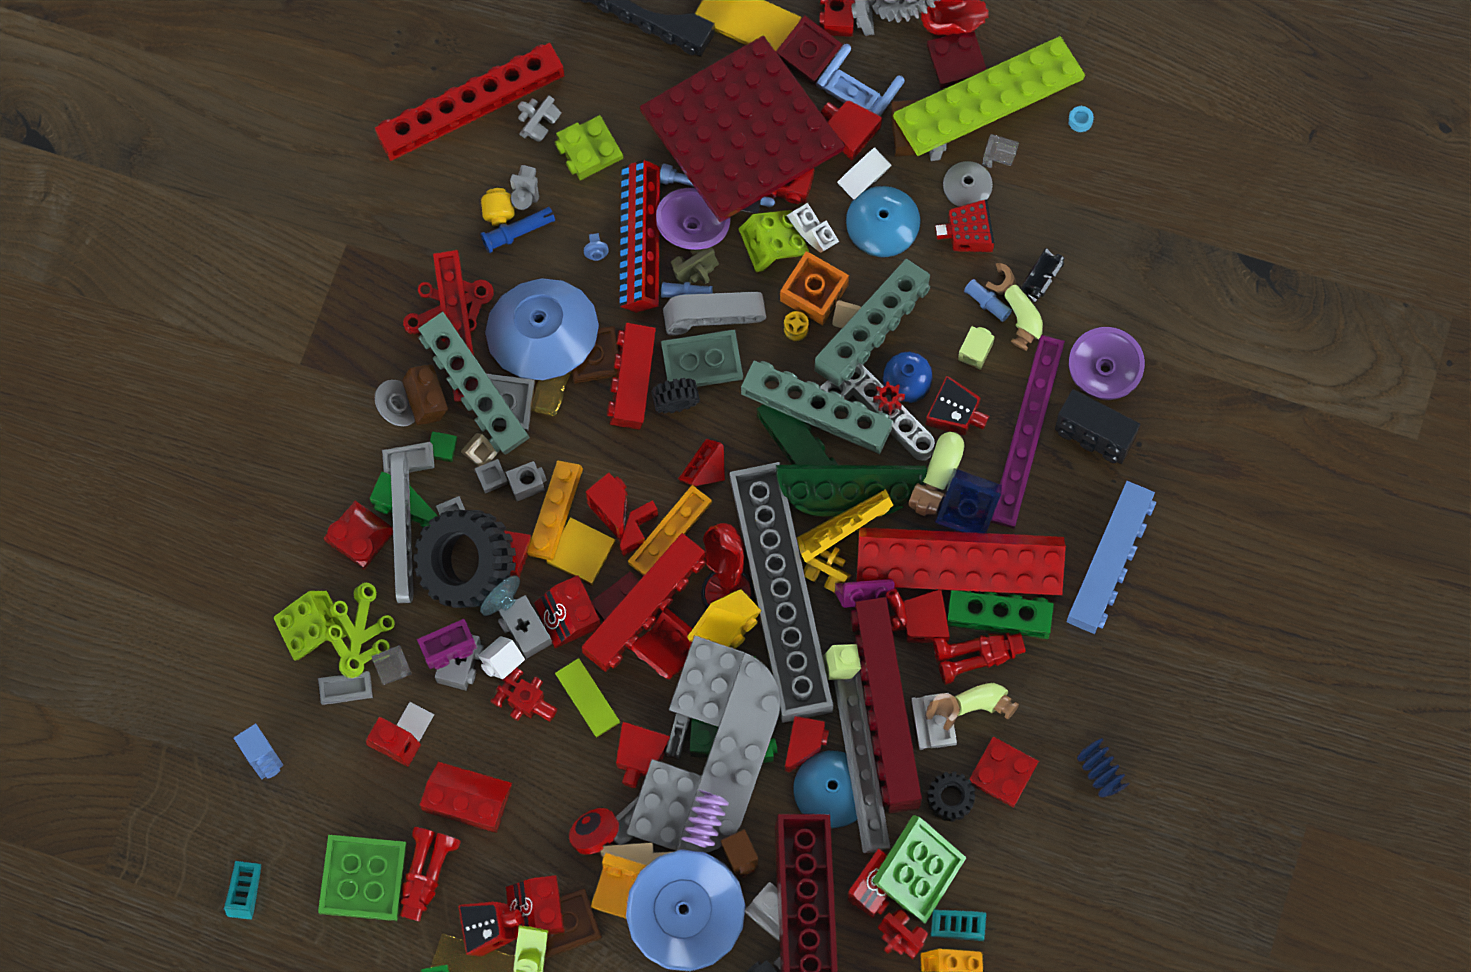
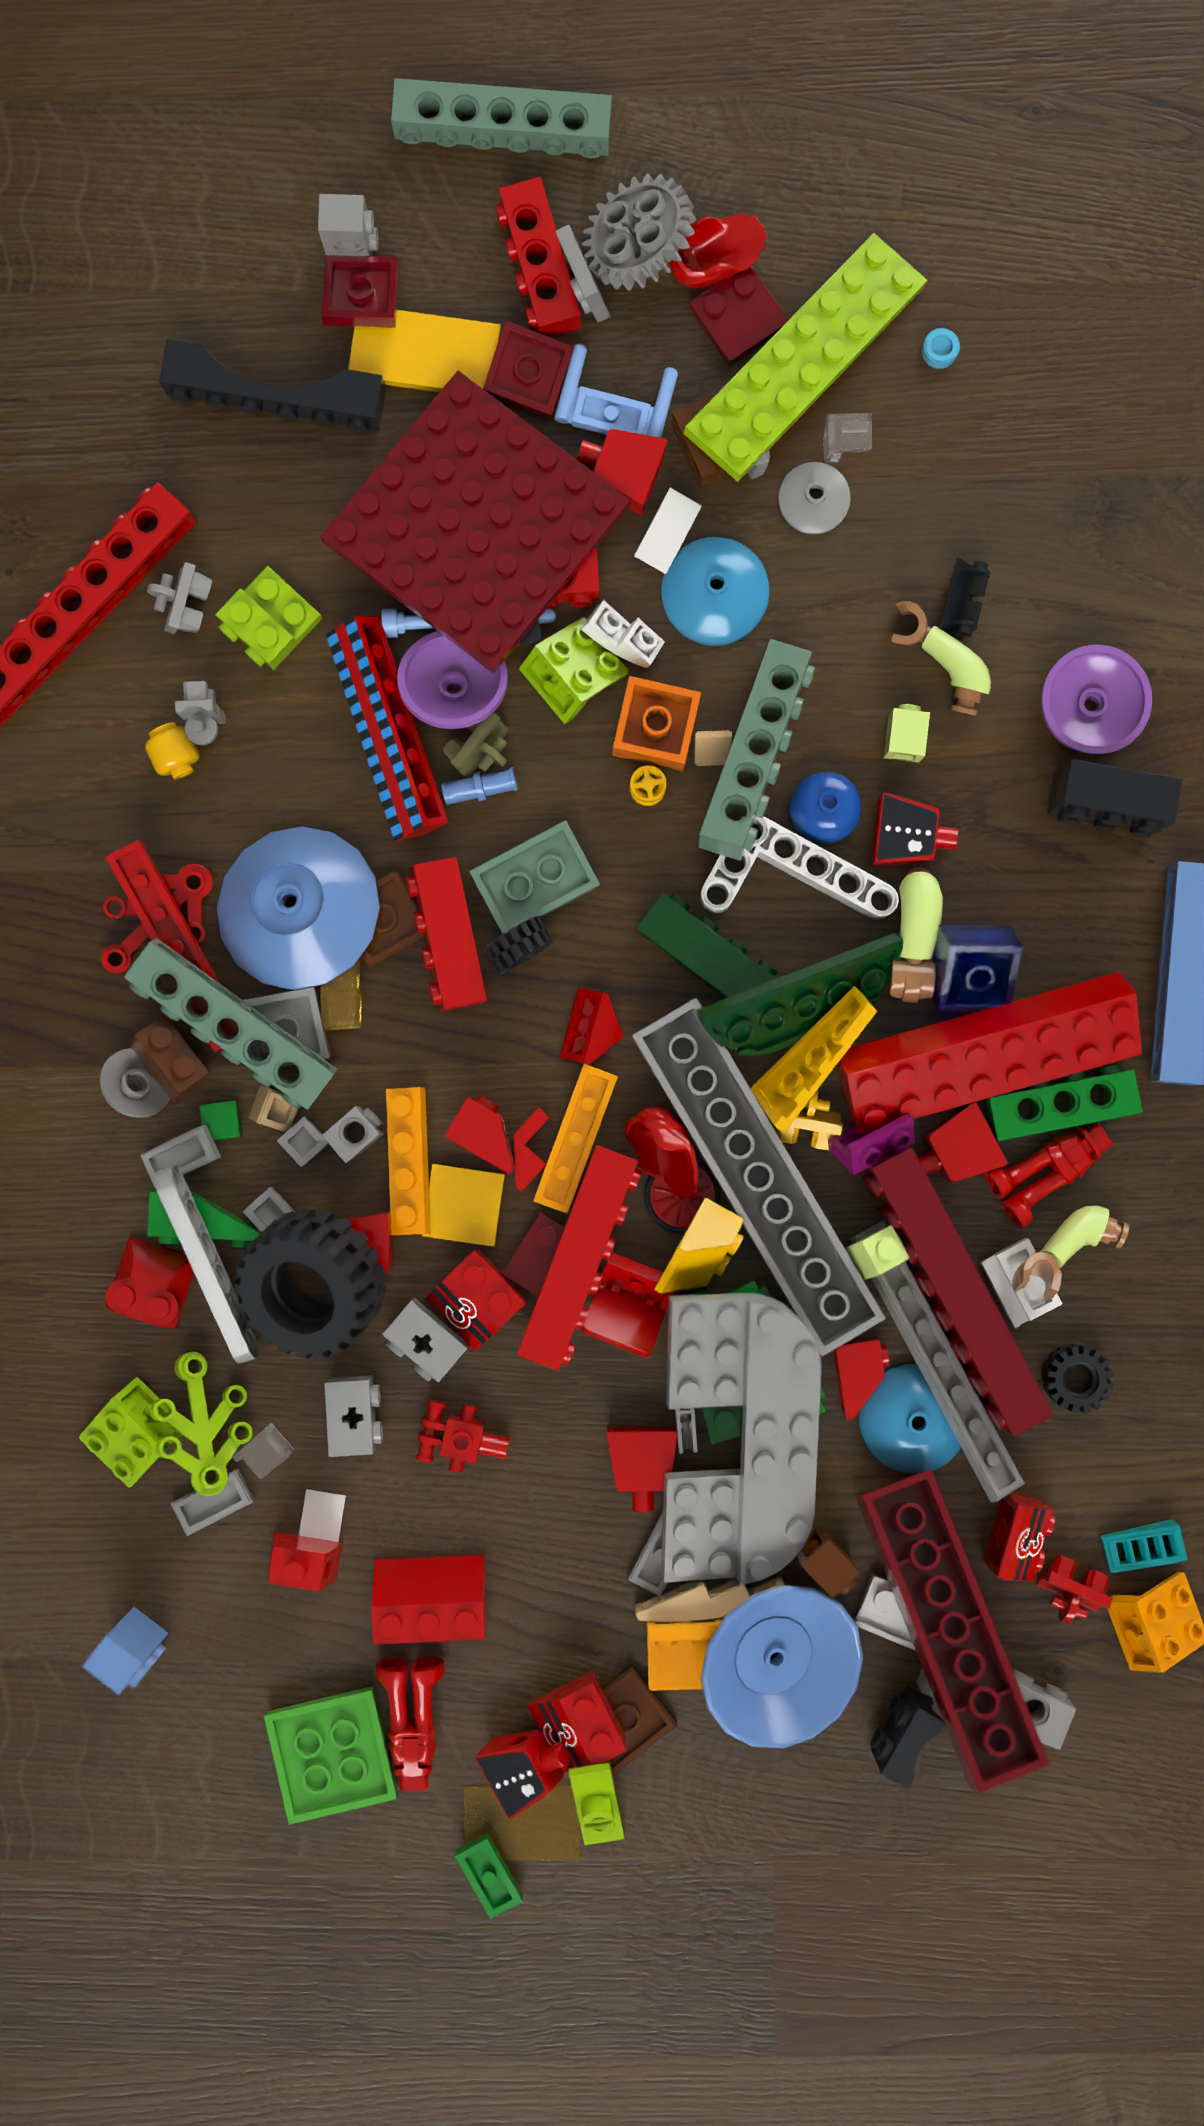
camera: 20 degrees left, 15 degrees up
(246, 905) = (163, 1823): teal slope -> none
(447, 644) = (329, 1412): magenta bracket -> none
(501, 596) = (381, 1319): clear light blue dish -> none
(501, 658) = (408, 1398): white brick -> none
(506, 233) = (198, 785): blue pin -> none
(587, 697) = (545, 1410): lime piece -> none
(593, 831) = (619, 1592): red tile -> none
(595, 249) = (332, 767): medium blue plate -> none
(705, 820) = (773, 1542): lavender piece -> none
(712, 309) = (526, 803): light grey beam -> none
(823, 418) = (818, 898): sand green brick -> none
(894, 394) = (819, 844): red gear -> none
(898, 607) = (928, 1149): red arm -> none
(919, 869) = (1073, 1502): plate -> none
(968, 228) = (840, 563): red torso -> none
(988, 300) = (899, 660): medium blue pin -> none
(1003, 771) = (1133, 1318): red plate -> none
(1027, 430) = (1013, 819): magenta tile -> none

